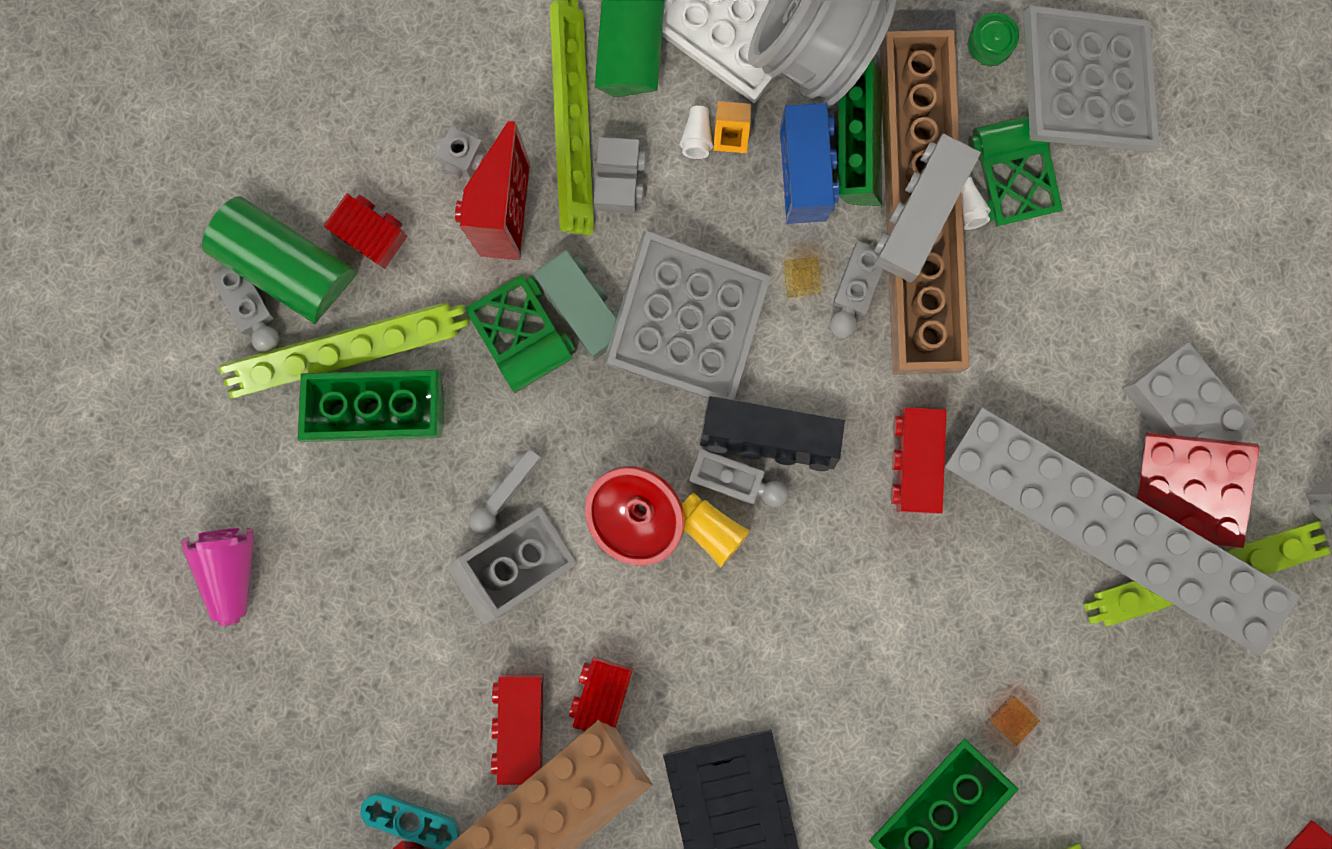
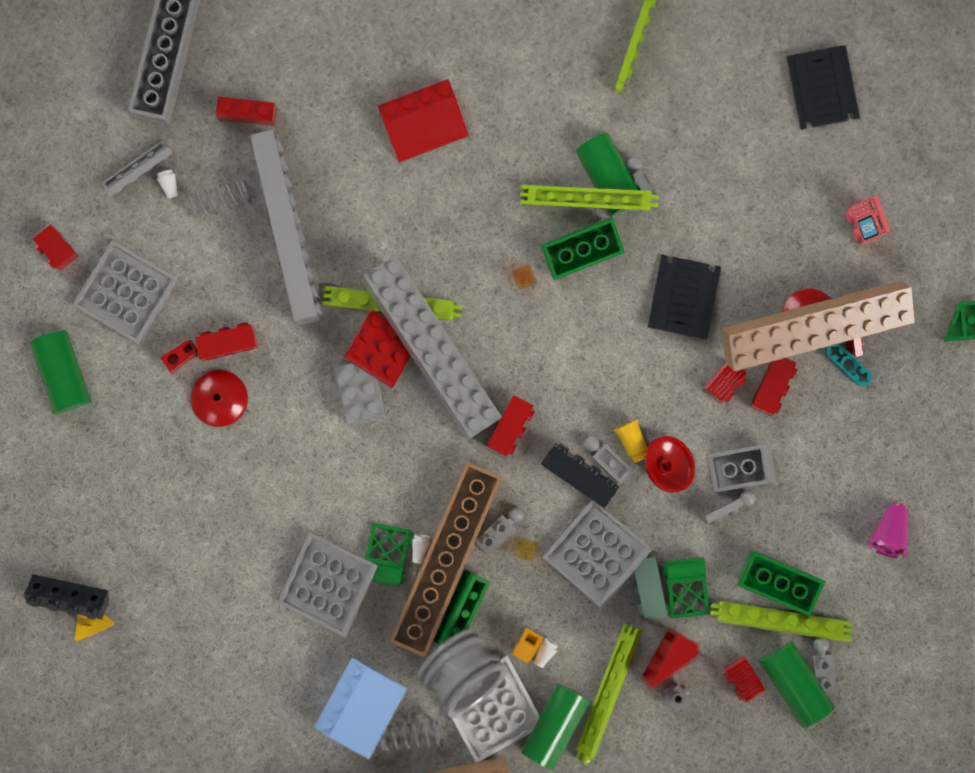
camera: 160 degrees left, 0 degrees up
(617, 175) = (598, 647): light grey brick -> none
(808, 163) = (497, 606): blue brick -> none
(927, 207) = (451, 552): light grey brick -> none
(993, 39) = (365, 631): green wheel -> none

